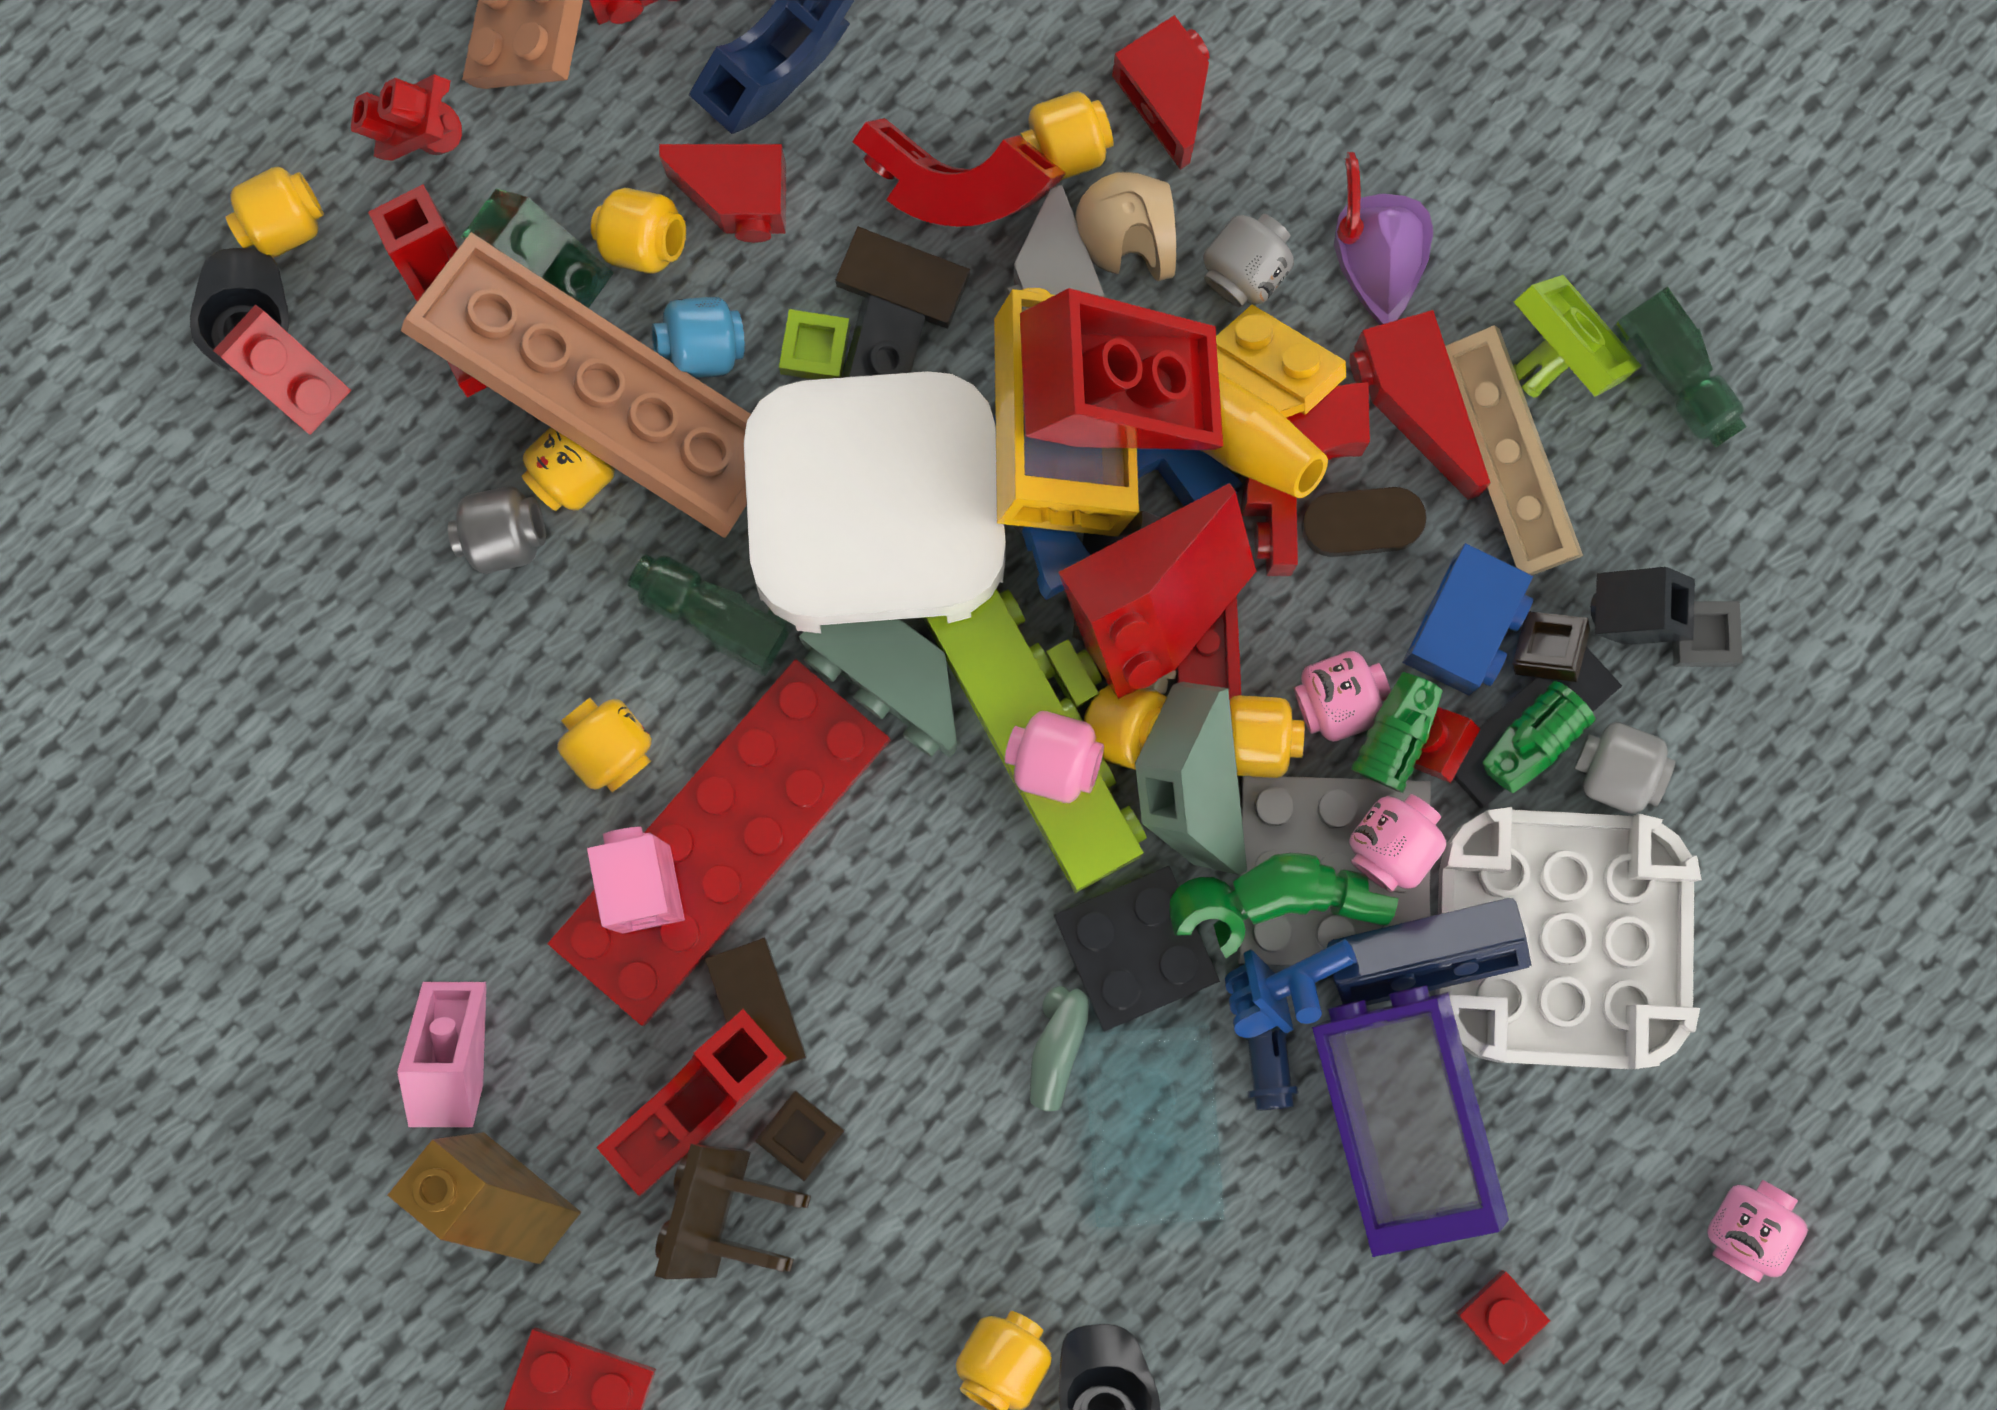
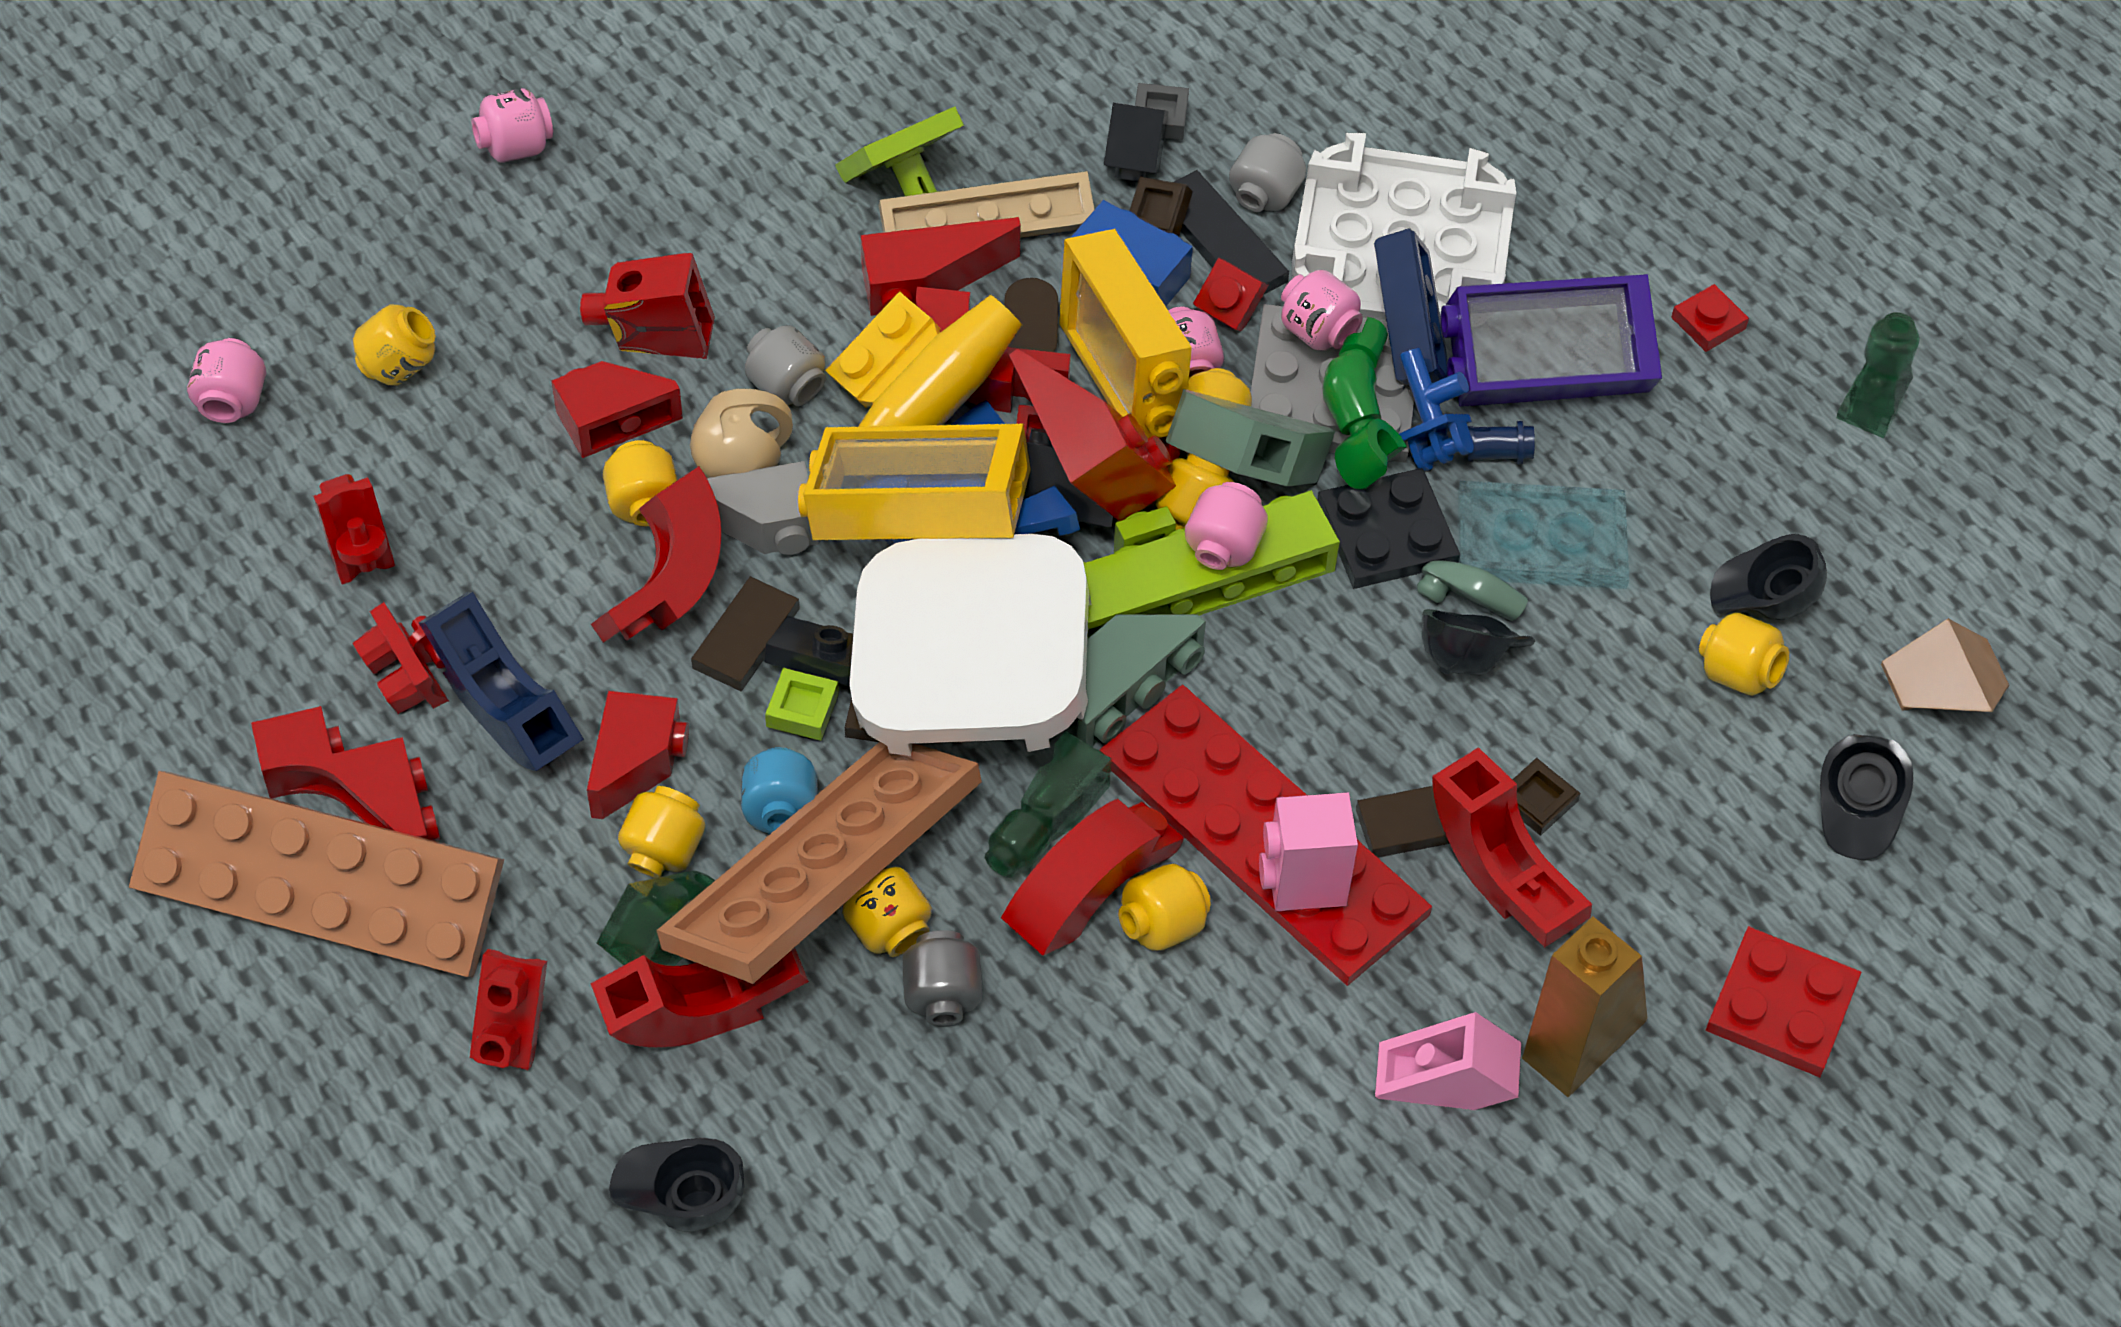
camera: 85 degrees left, 25 degrees down
(274, 212) = (577, 1147): yellow head -> none
(282, 369) = (752, 1142): plate -> none
(637, 668) = (1085, 869): none -> red arch
(704, 1184) = (1630, 858): dark brown plate -> none
(984, 1050) = (1467, 641): none -> black piece
(1118, 375) = (902, 420): red slope -> none
(1303, 93) = (654, 307): none -> red torso
(1320, 616) = (1123, 331): none -> yellow window
(1382, 246) = (788, 279): medium lavender piece -> none
(1399, 732) = (1228, 303): green hinge -> none
(1538, 737) = (1245, 225): green hinge -> none
(1681, 363) = (925, 90): clear green piece -> none
(1757, 1230) = (1647, 142): bright pink head -> none

